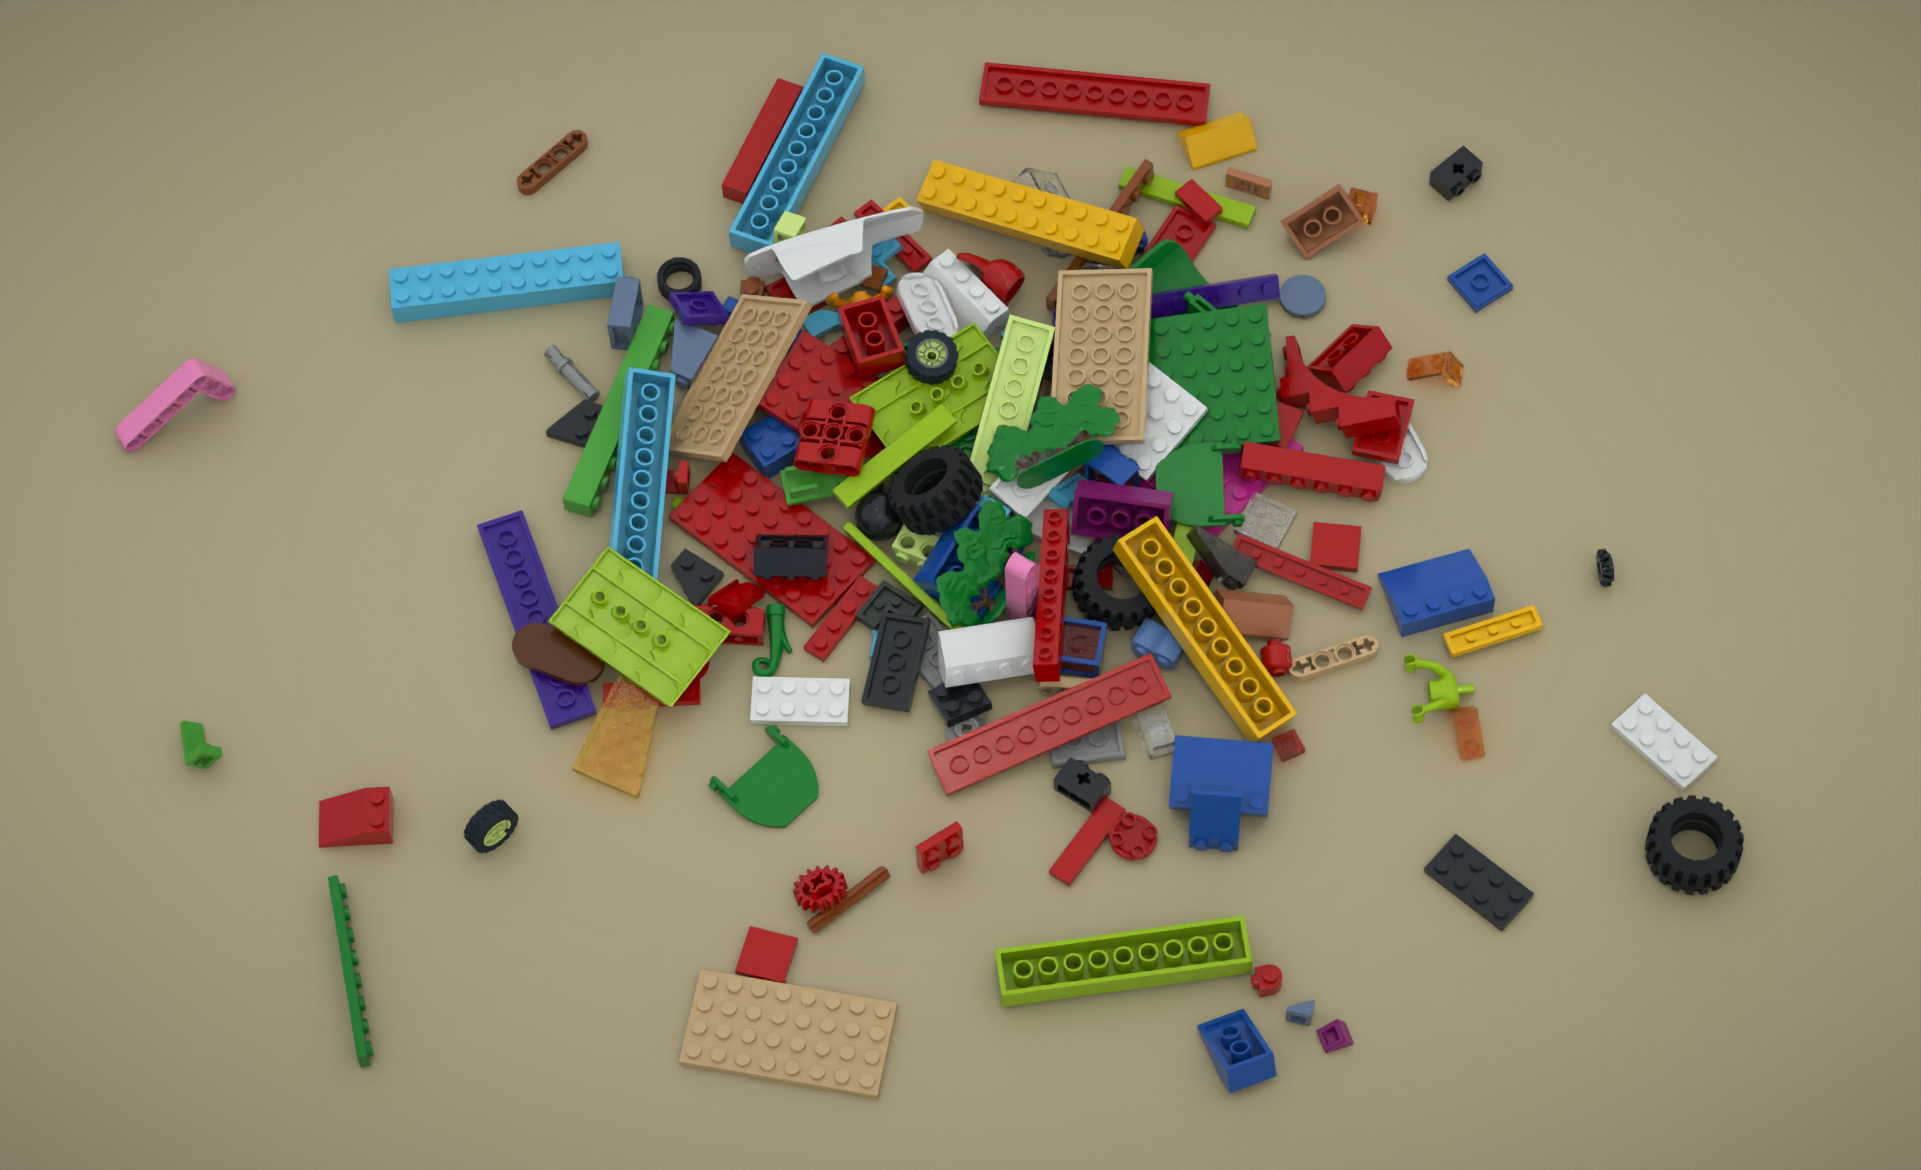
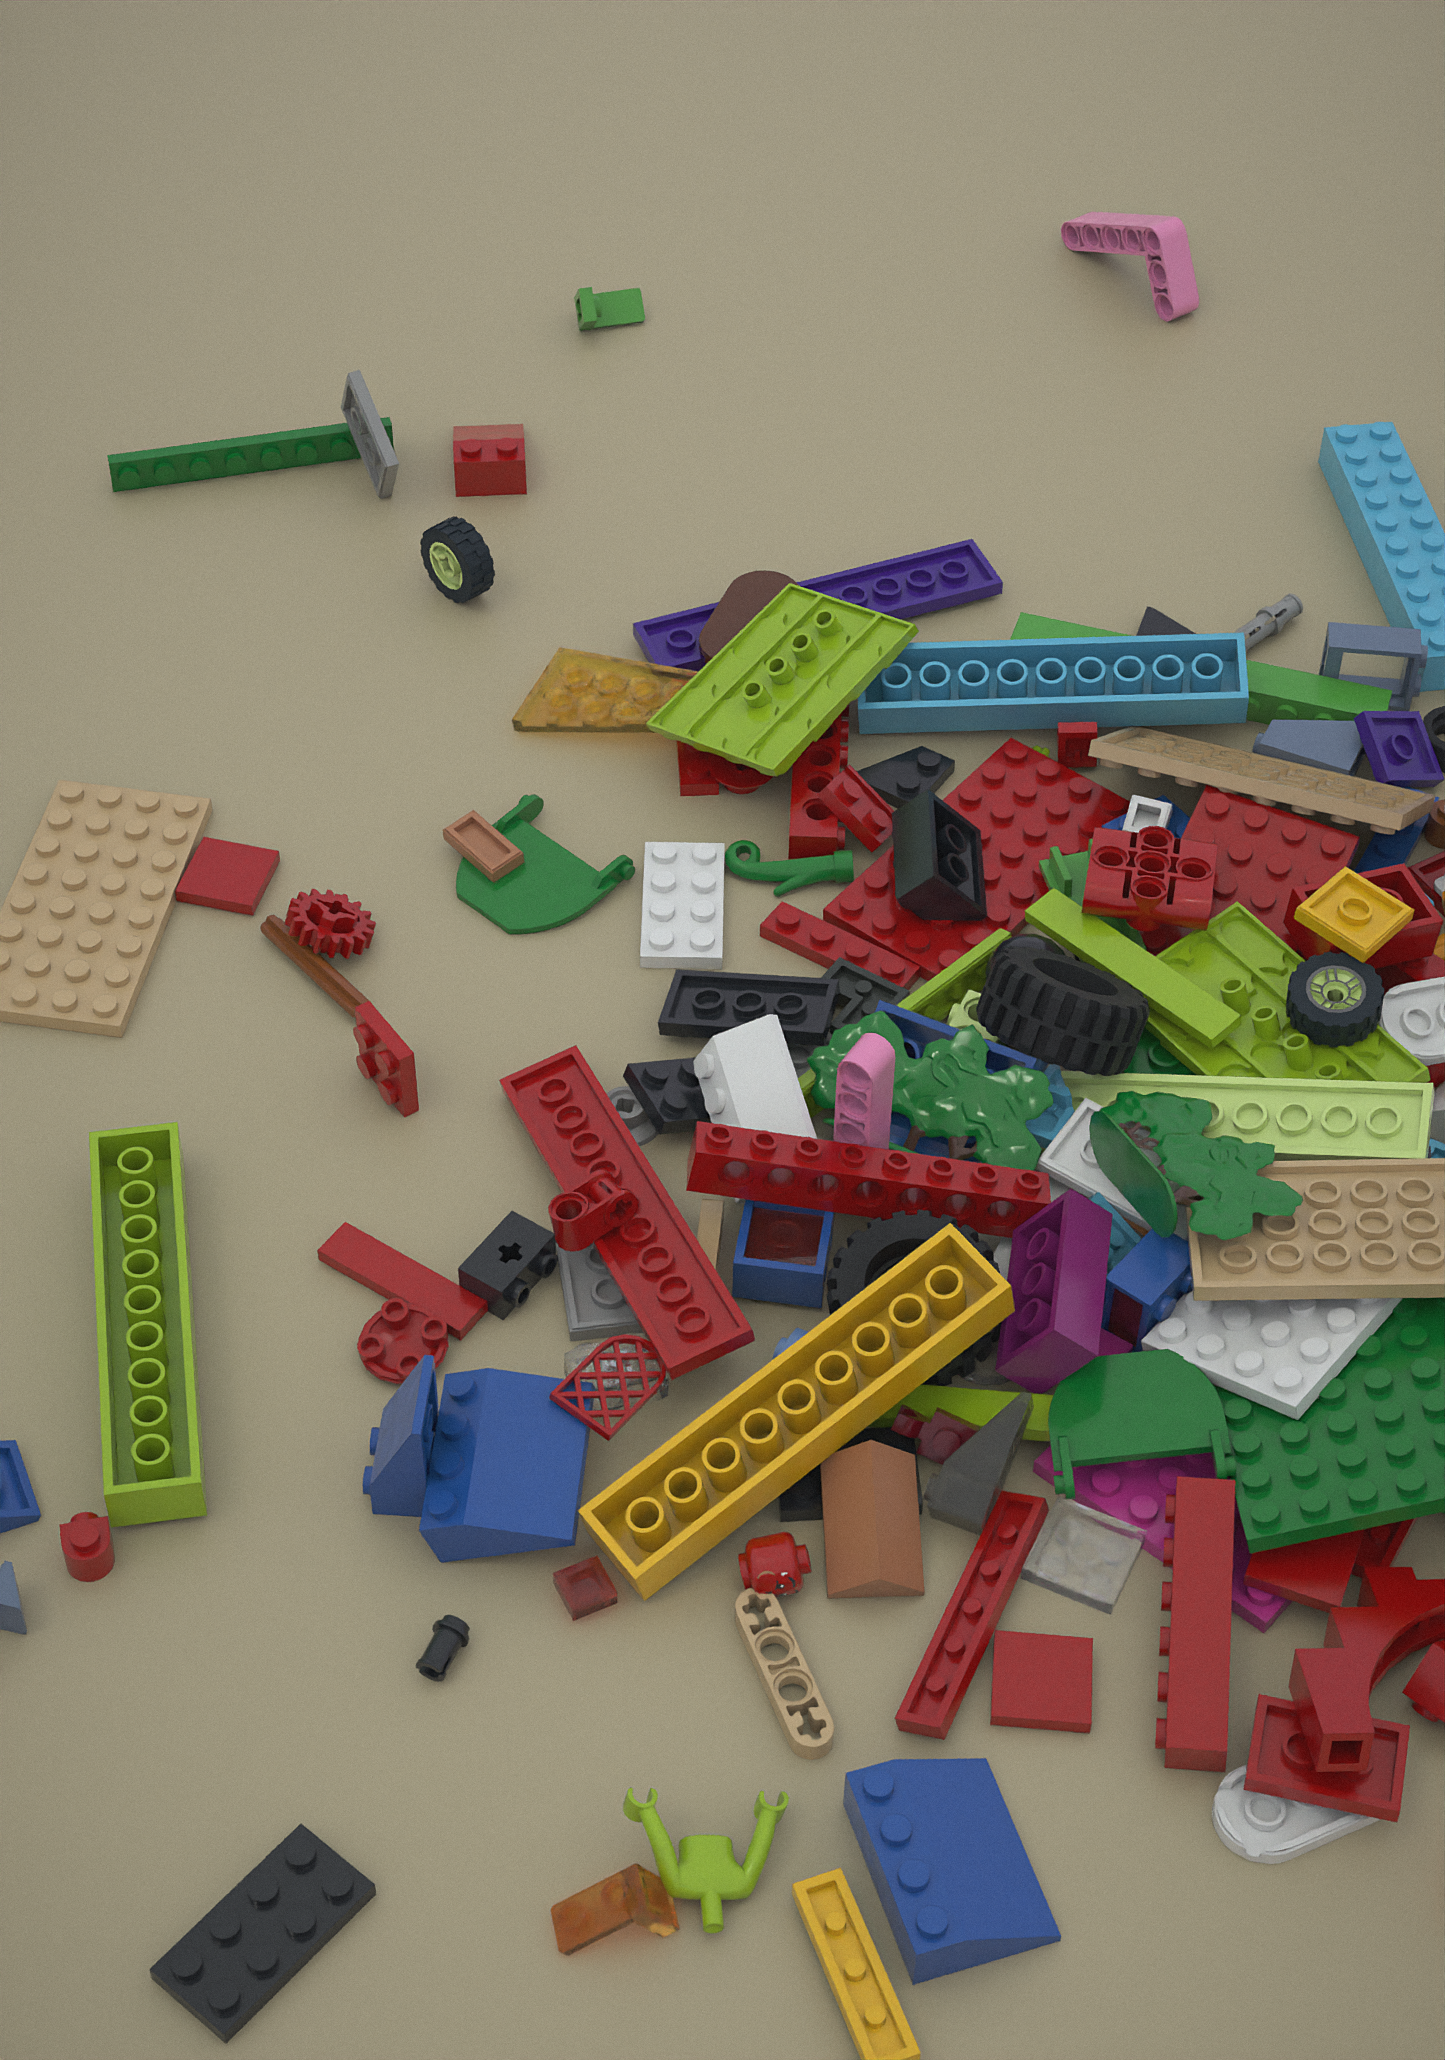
camera: 85 degrees right, 15 degrees down
(364, 880) = (369, 434): none -> light grey tile
(752, 808) = (483, 846): none -> nougat tile
(769, 440) = (1145, 813): none -> white slope
(883, 335) = (1354, 914): none -> yellow tile
(1061, 730) = (588, 1209): none -> red piece
(1177, 709) = (577, 1374): none -> red window
(1323, 809) = (439, 1654): none -> black pin

